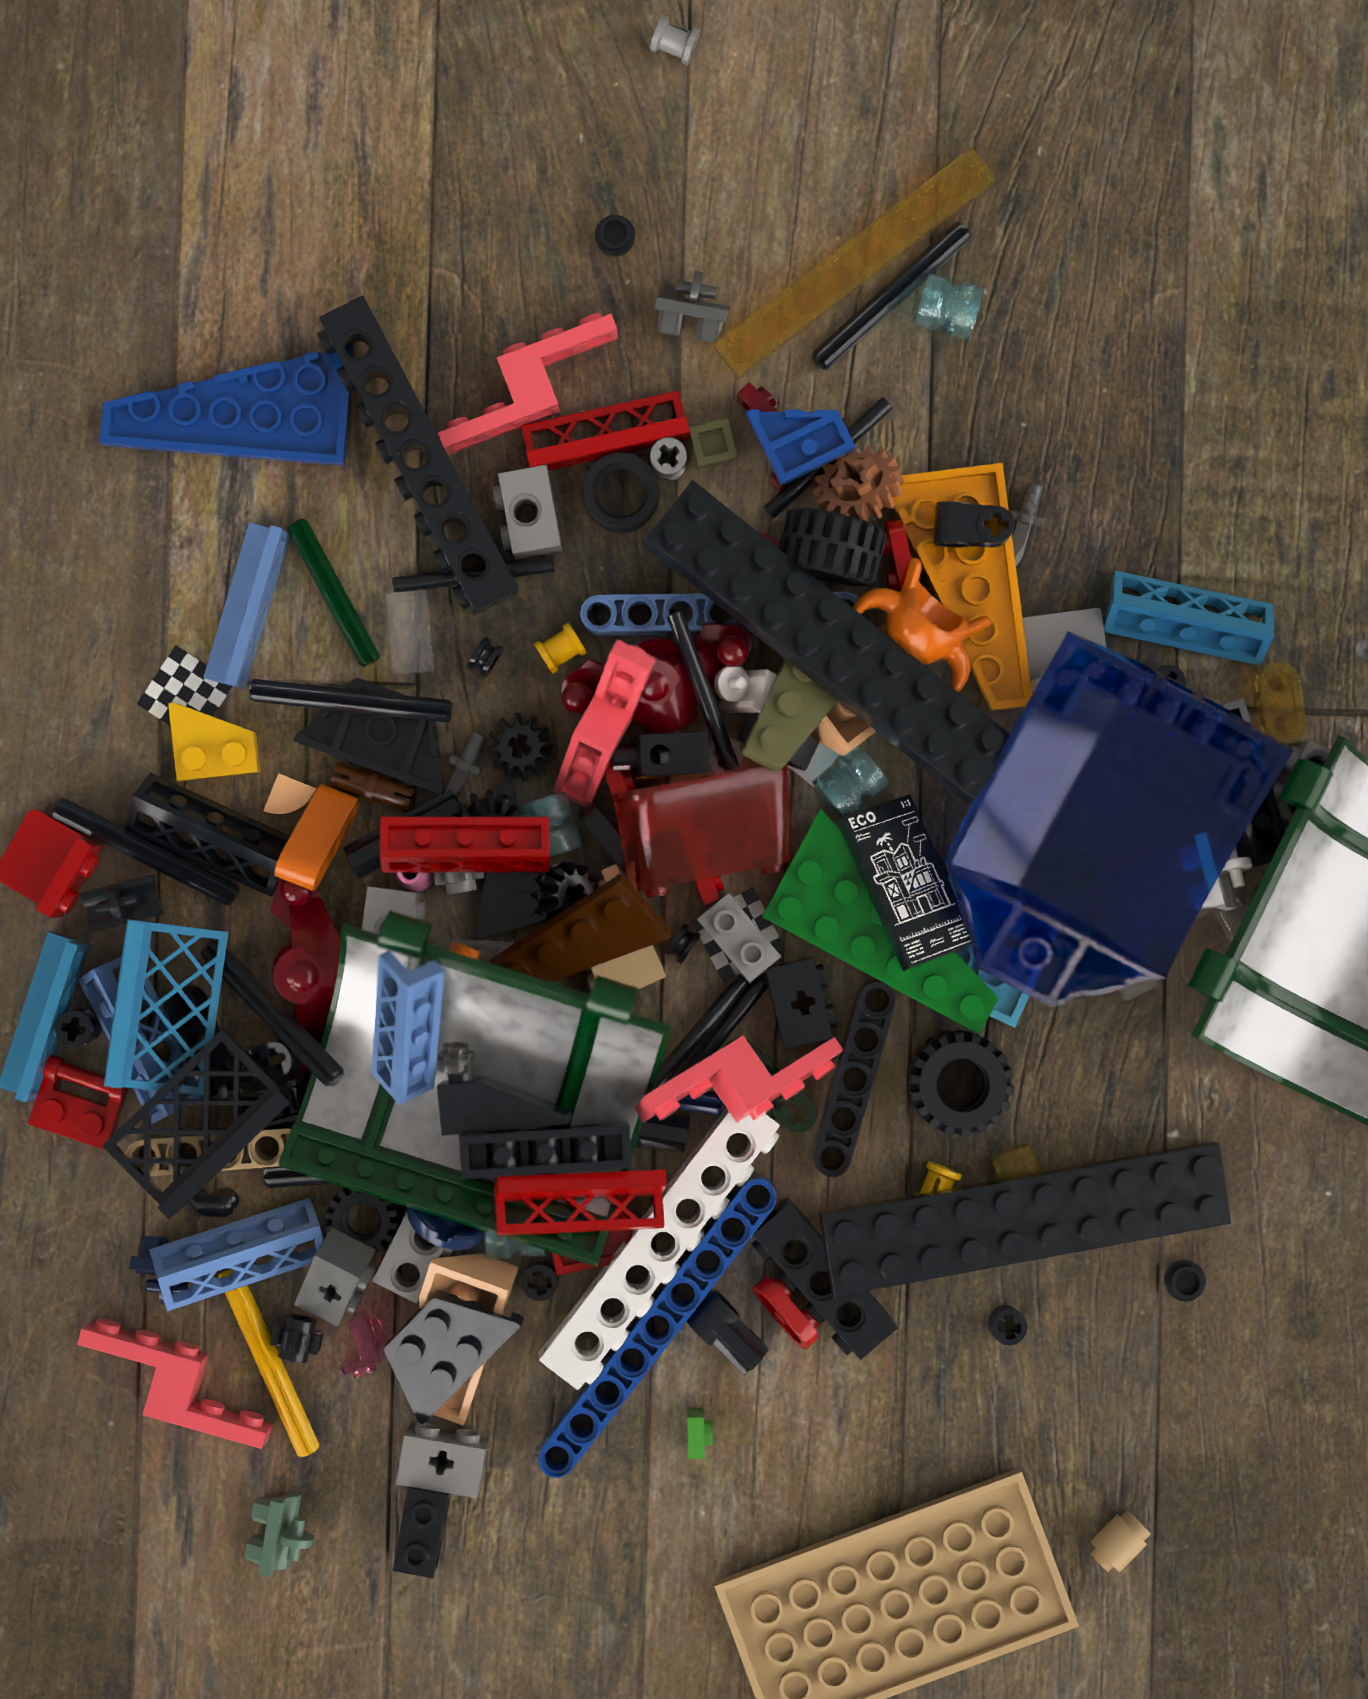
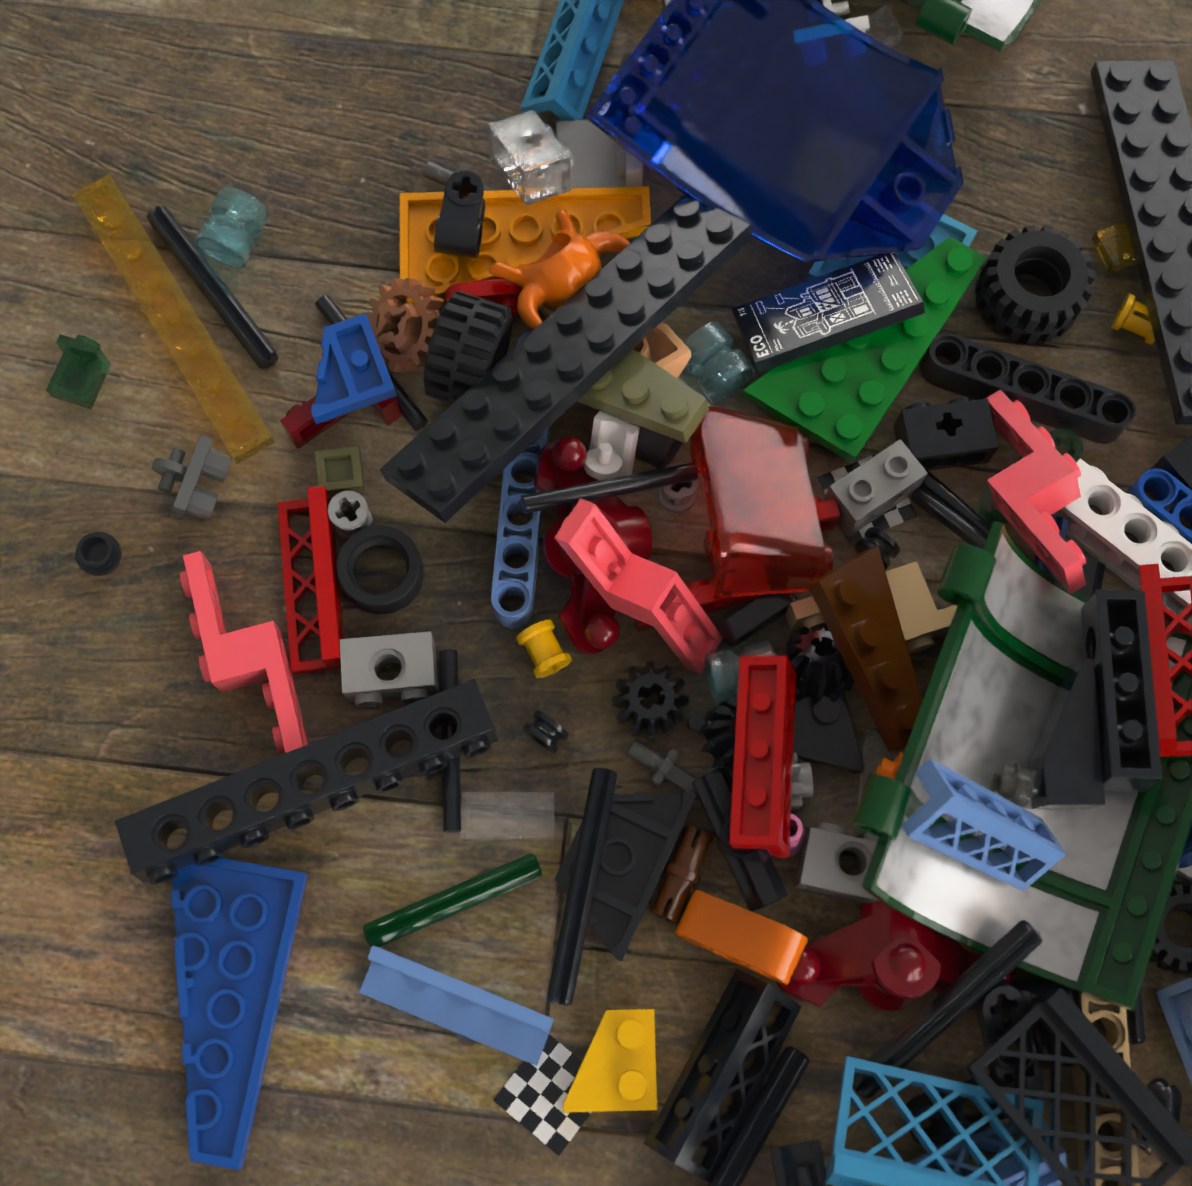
camera: 85 degrees left, 15 degrees down
(288, 795) = (684, 975): light nougat tile -> none
(678, 753) = (677, 528): black torso -> none
(787, 186) = (79, 371): none -> clear green bracket
(1062, 569) = (530, 157): none -> clear brick

